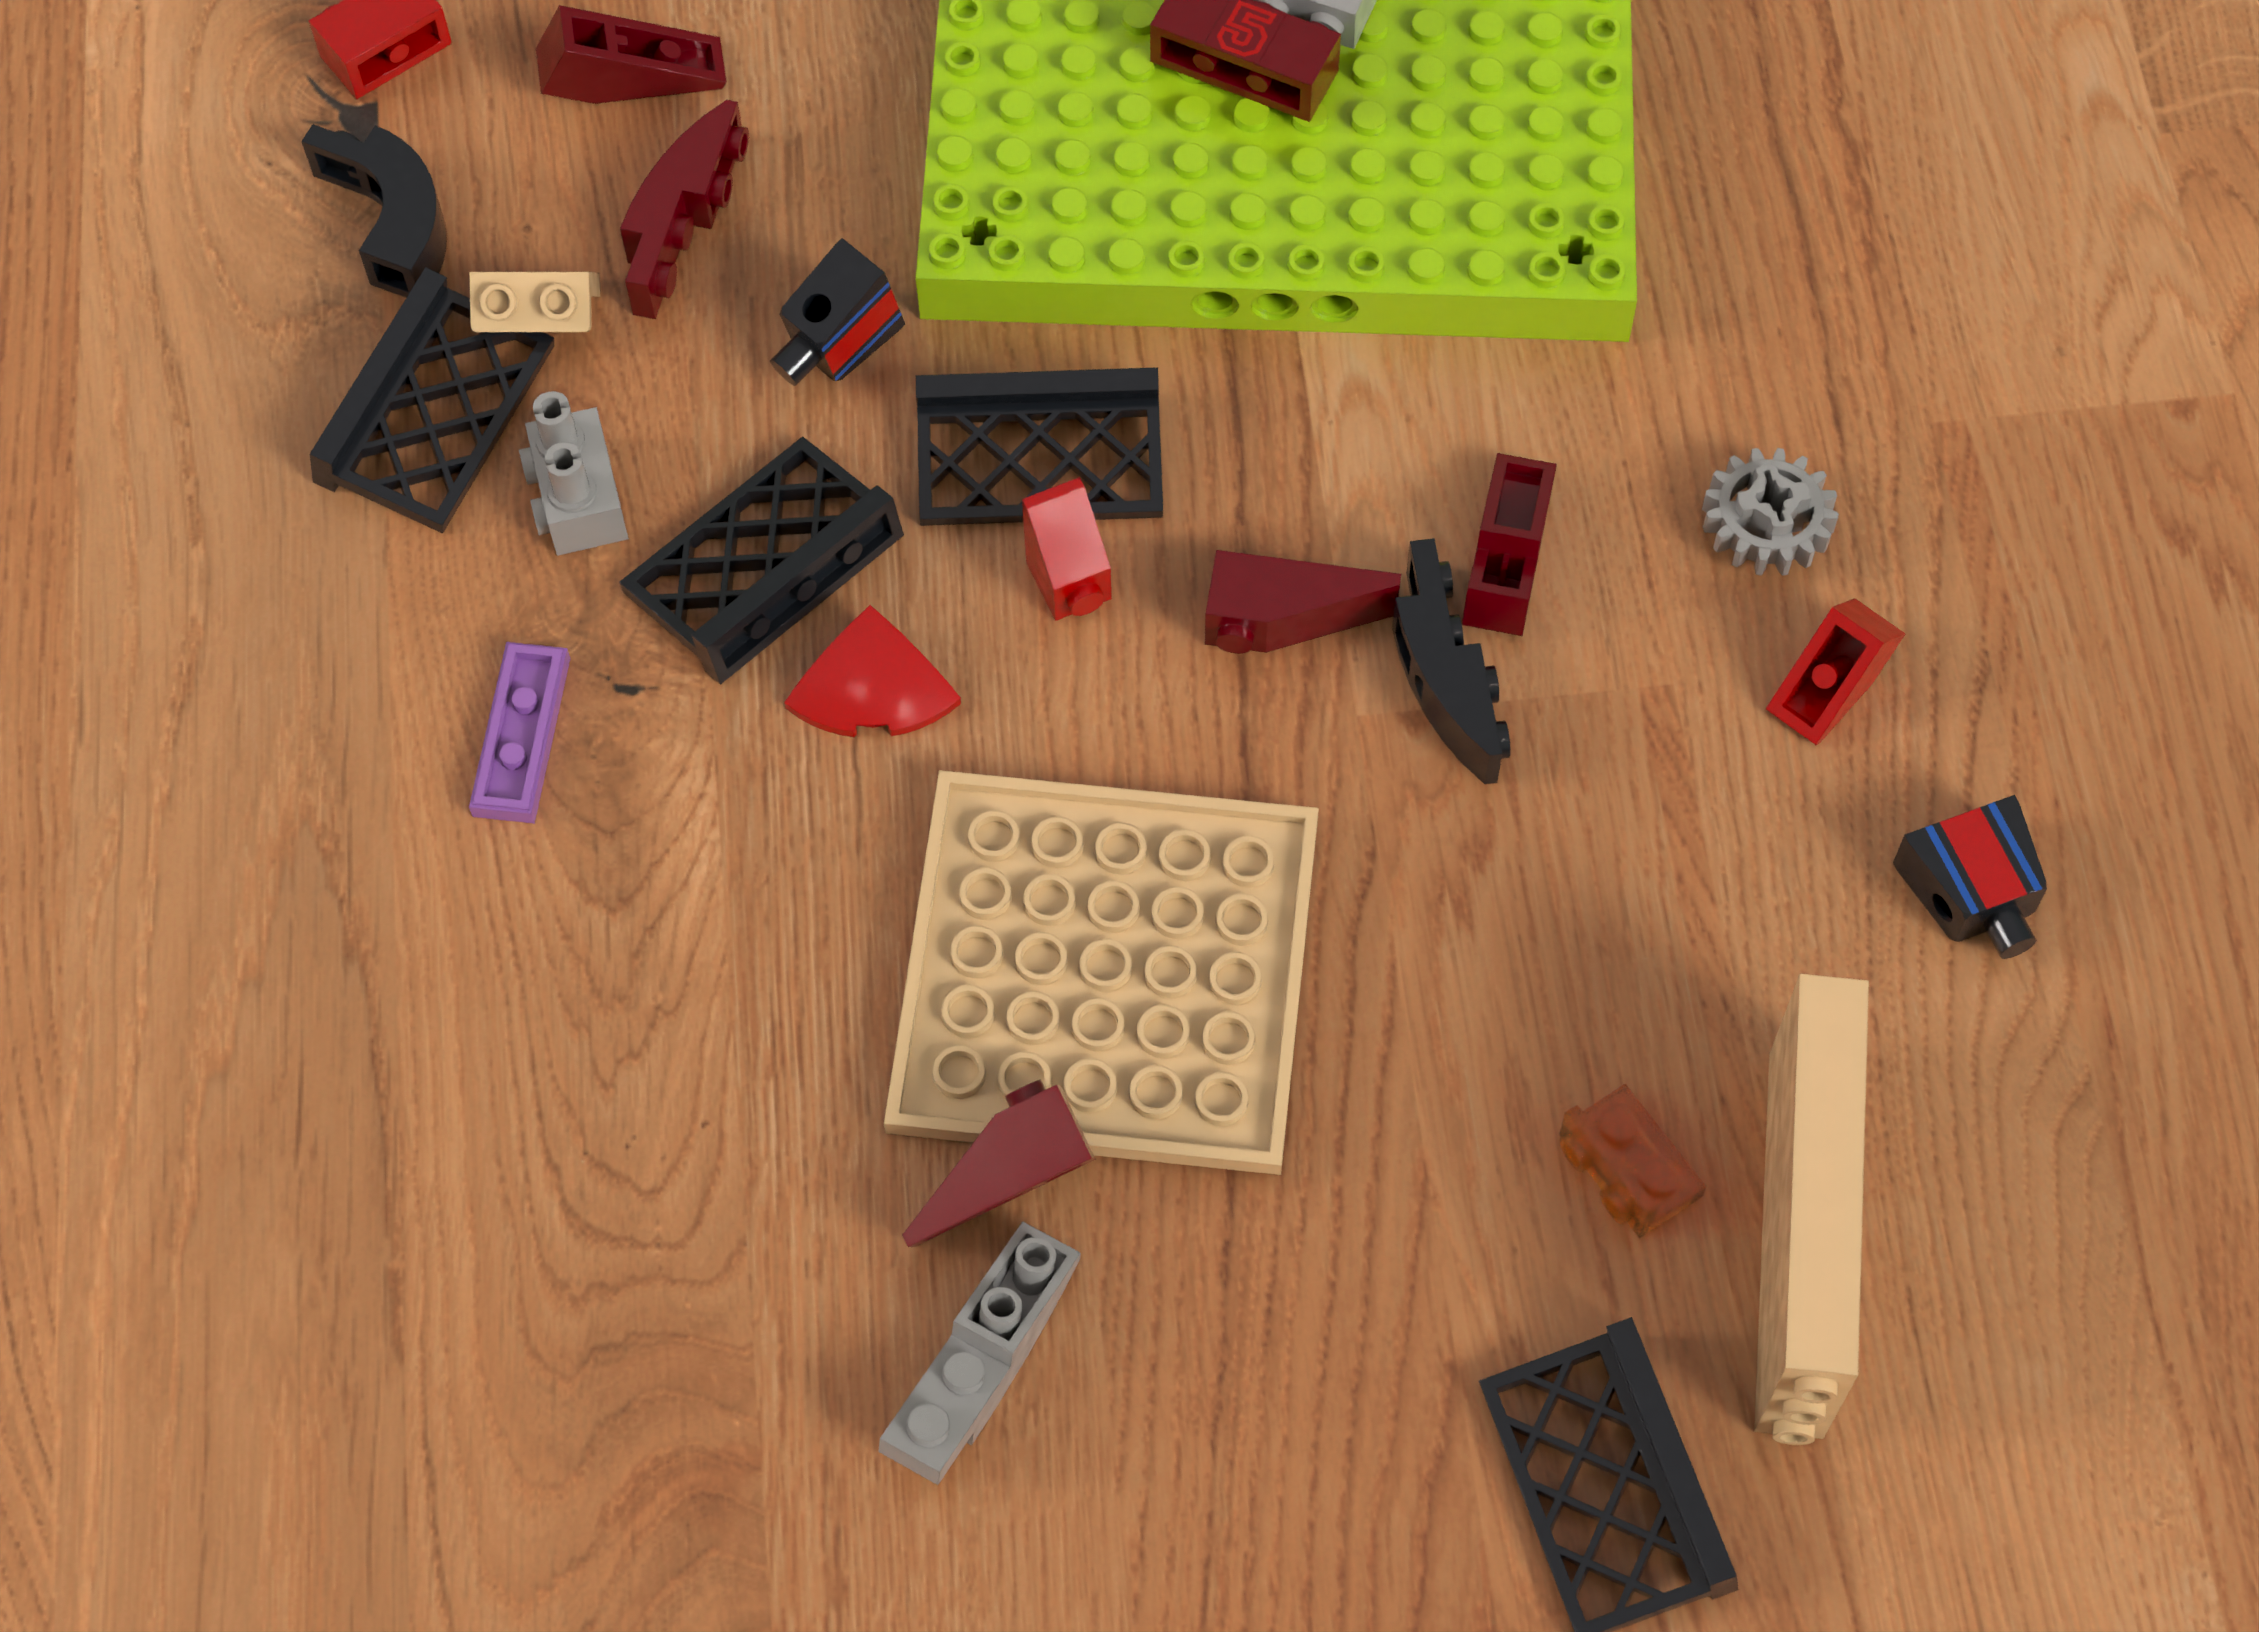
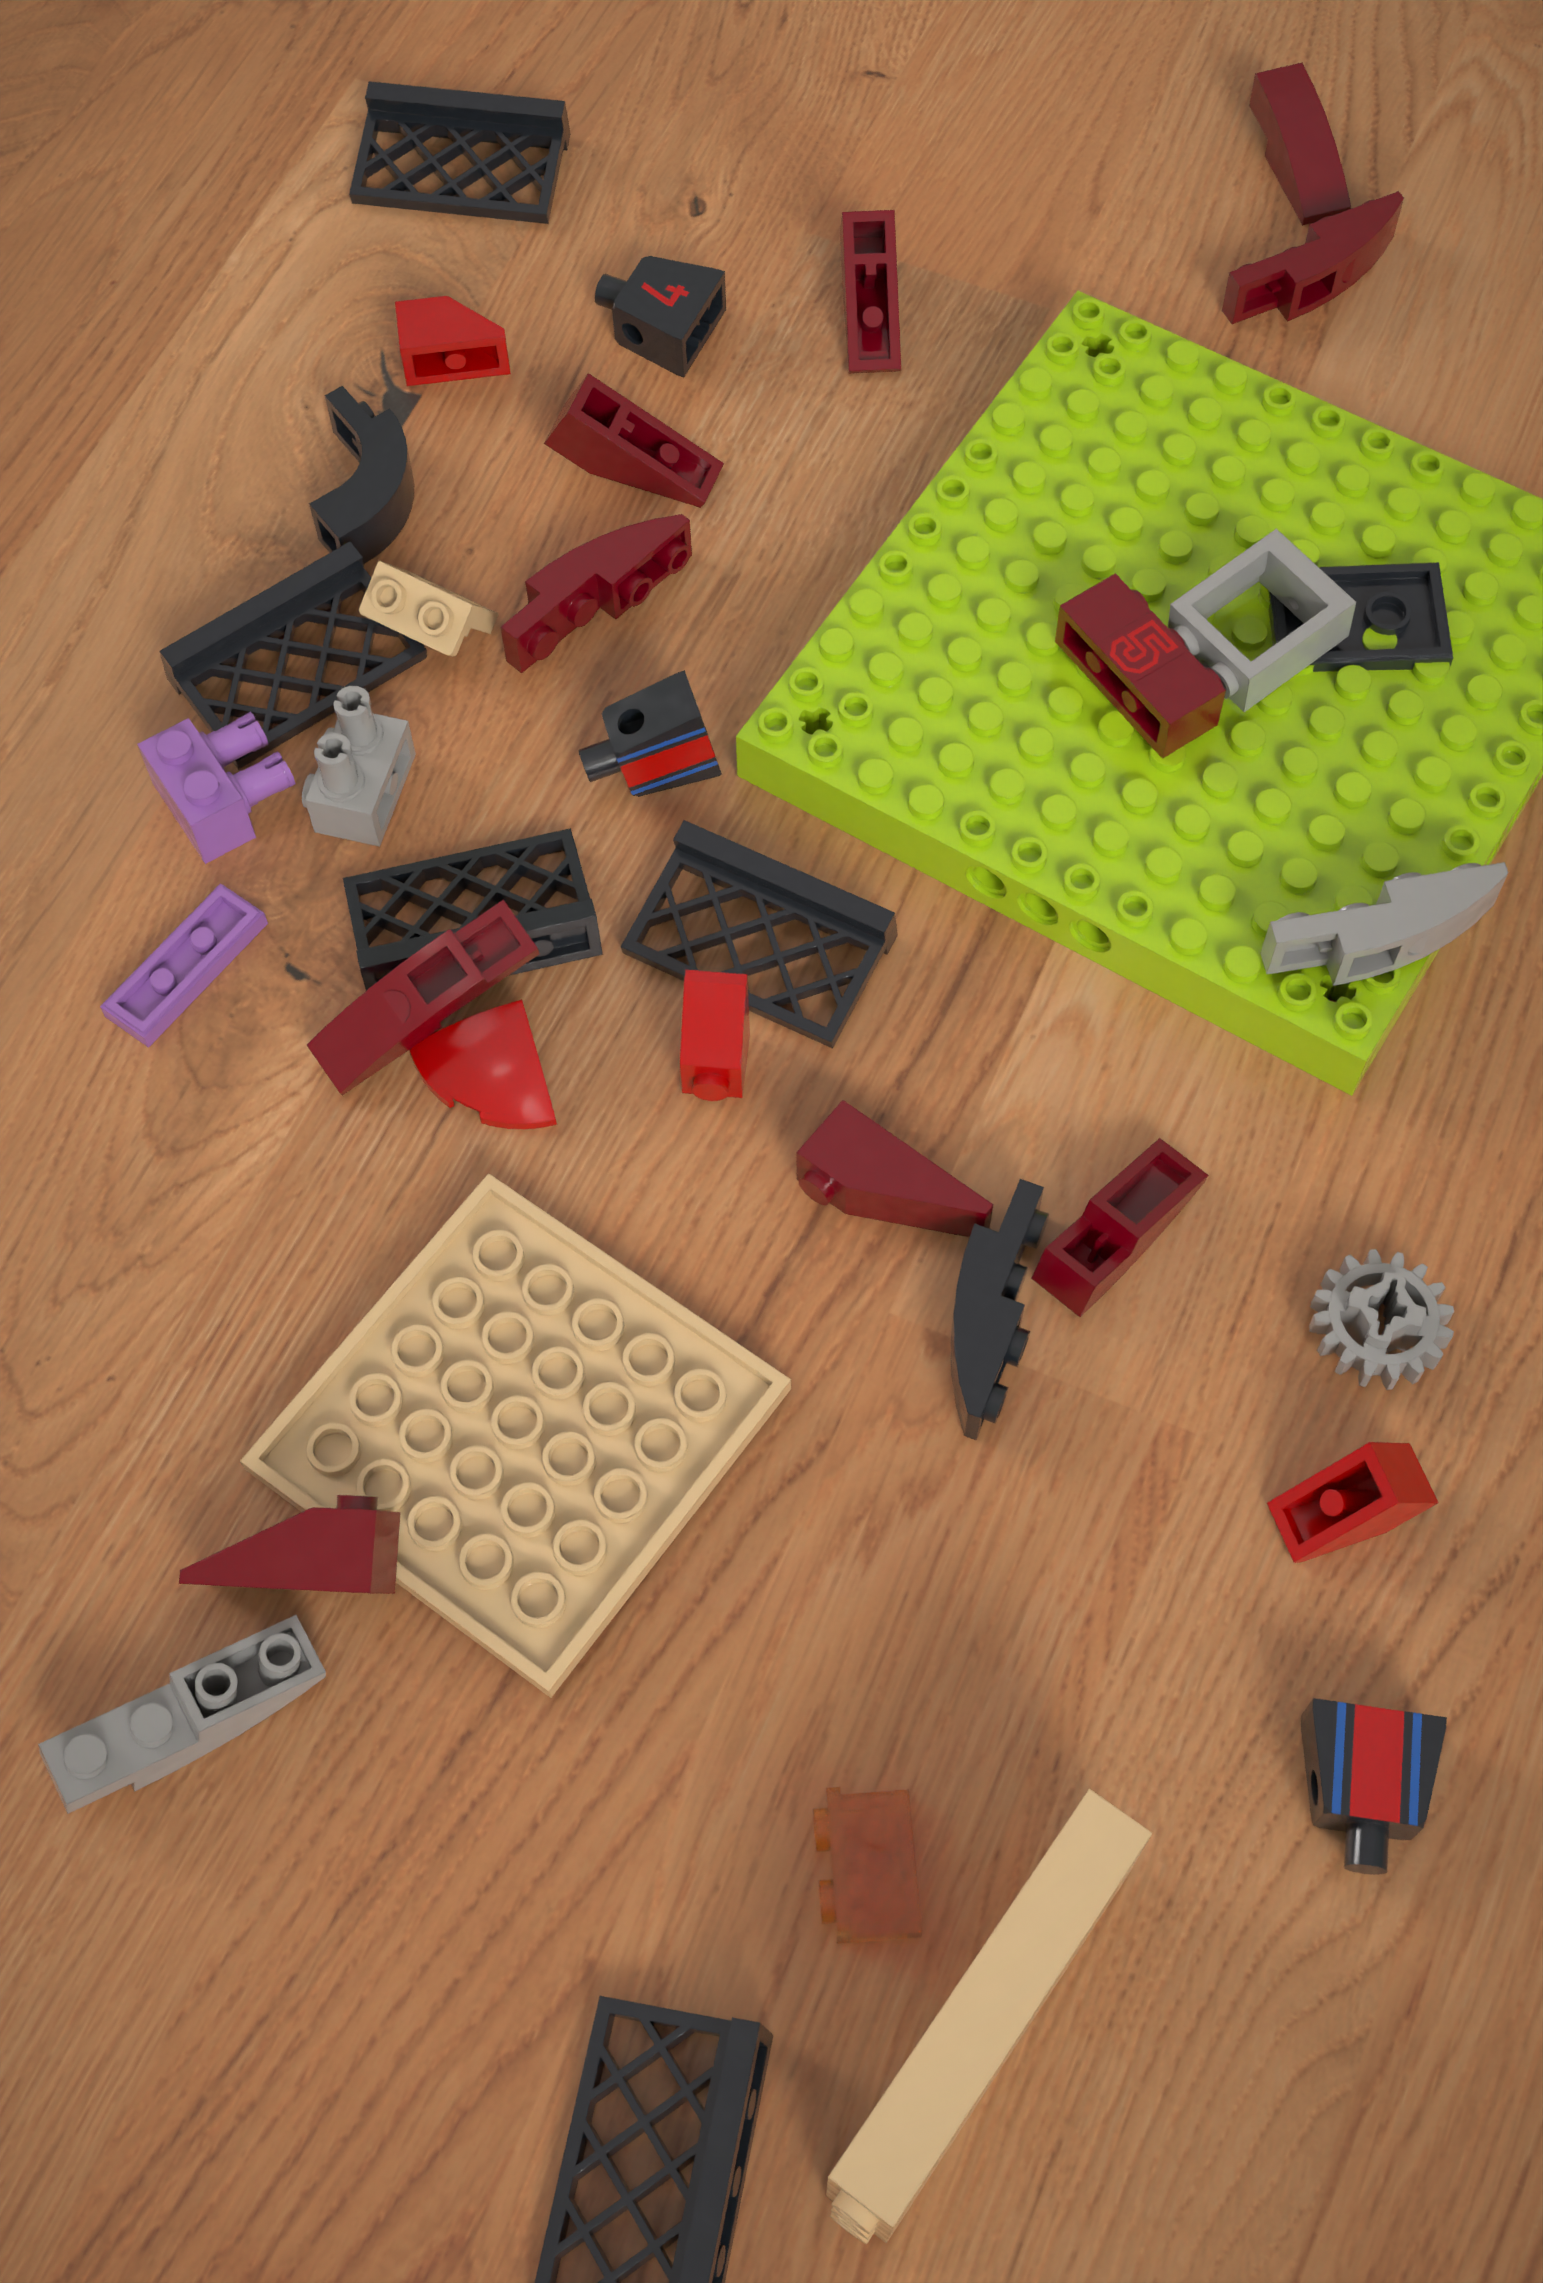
camera: 30 degrees right, 0 degrees up
(433, 567) = (199, 793): none -> medium lavender brick
(780, 646) = (419, 995): none -> dark red slope
(1603, 172) = (1406, 924): none -> light grey slope

